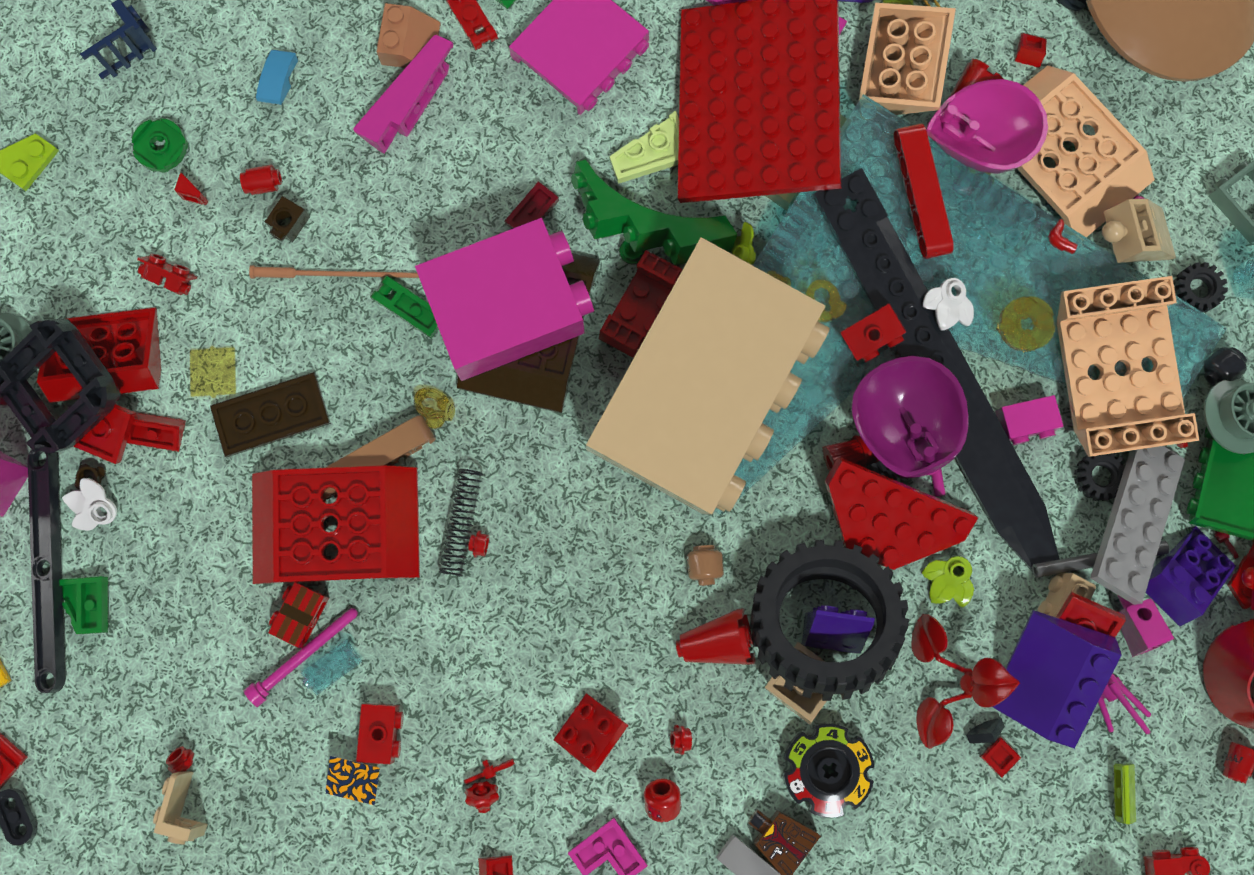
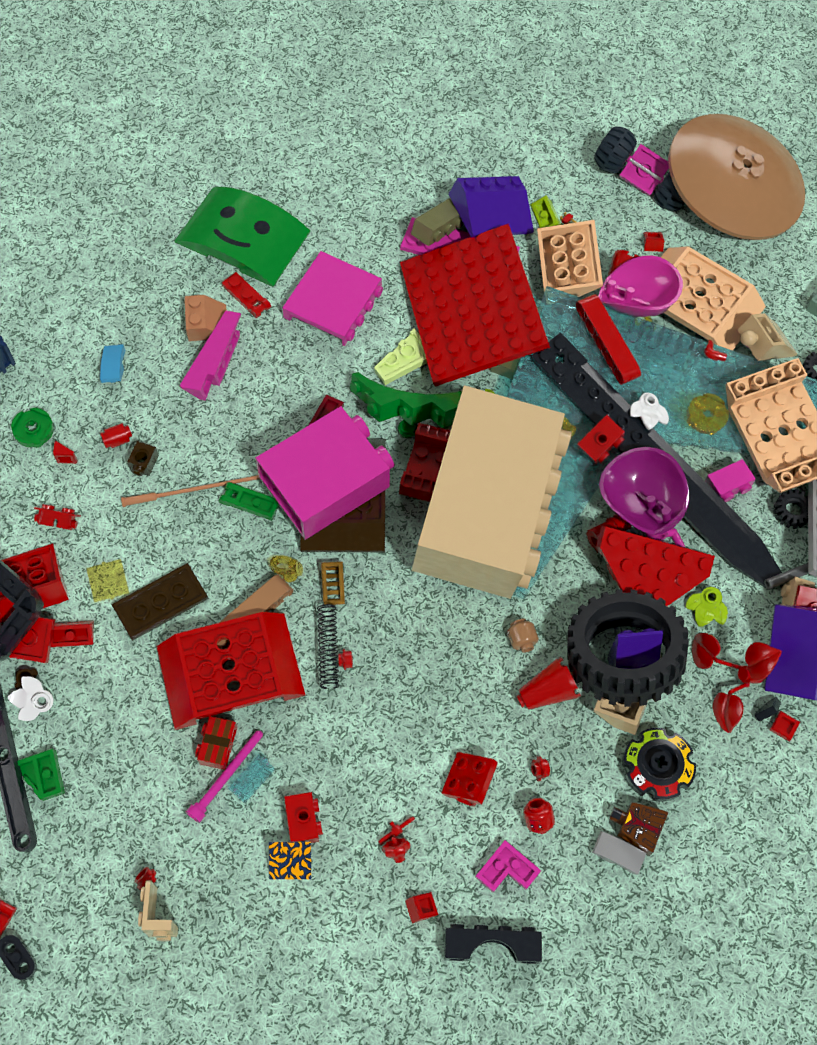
camera: 15 degrees left, 15 degrees down
(491, 417) = (333, 566): none -> pearl gold slope

